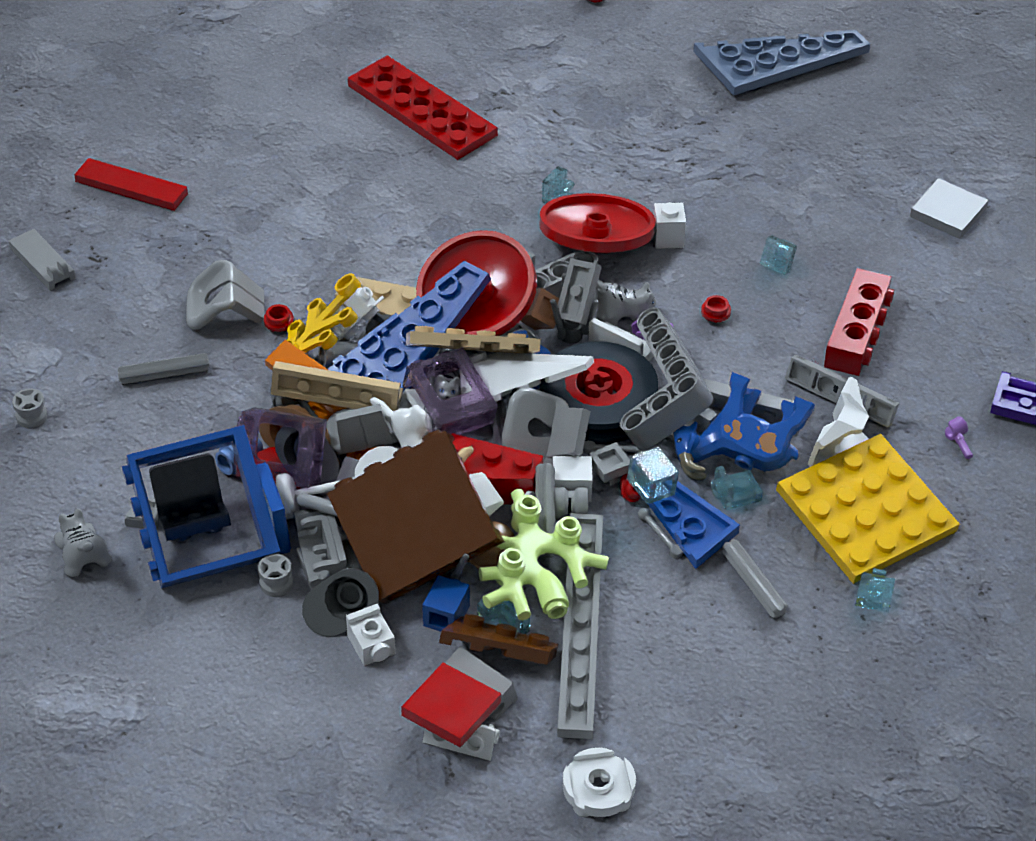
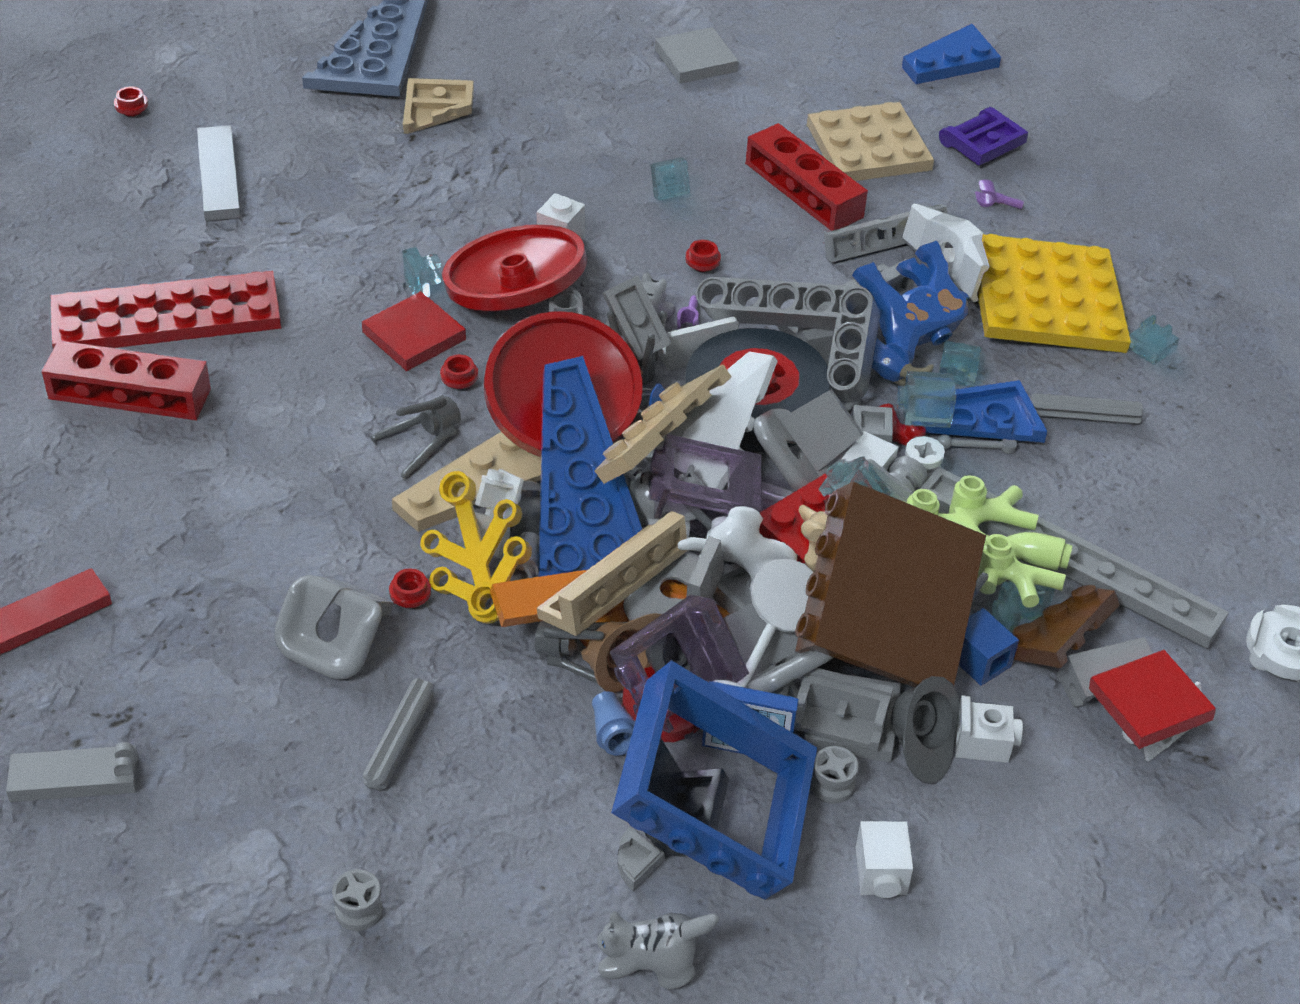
camera: 60 degrees left, 0 degrees up
(220, 625) = (883, 858): none -> white brick
(344, 120) = (126, 380): none -> red brick
(424, 253) = (435, 416): none -> dark grey plant
(507, 213) = (413, 331): none -> red tile
(511, 467) = (856, 470): none -> clear light blue bracket
(569, 60) = (218, 173): none -> tile
(609, 503) = (927, 452): none -> white wheel
(740, 112) = (436, 102): none -> tan wing
(949, 341) = (870, 141): none -> tan plate

